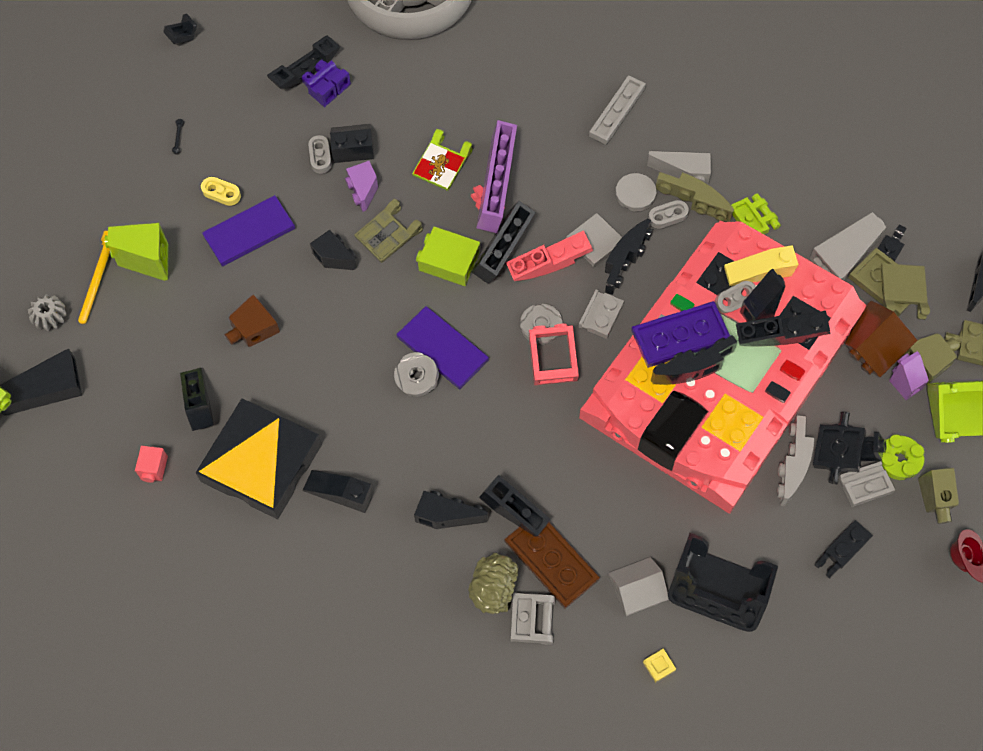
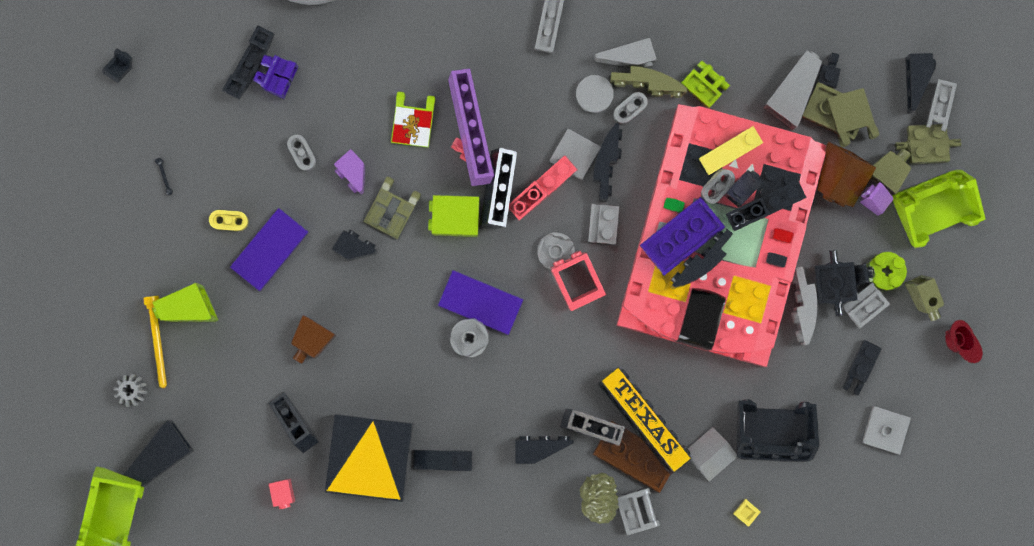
camera: 25 degrees left, 20 degrees up
(351, 143) = (324, 129): black slope -> none
(576, 521) = (644, 420): none -> brick
(853, 628) = (886, 430): none -> light grey plate

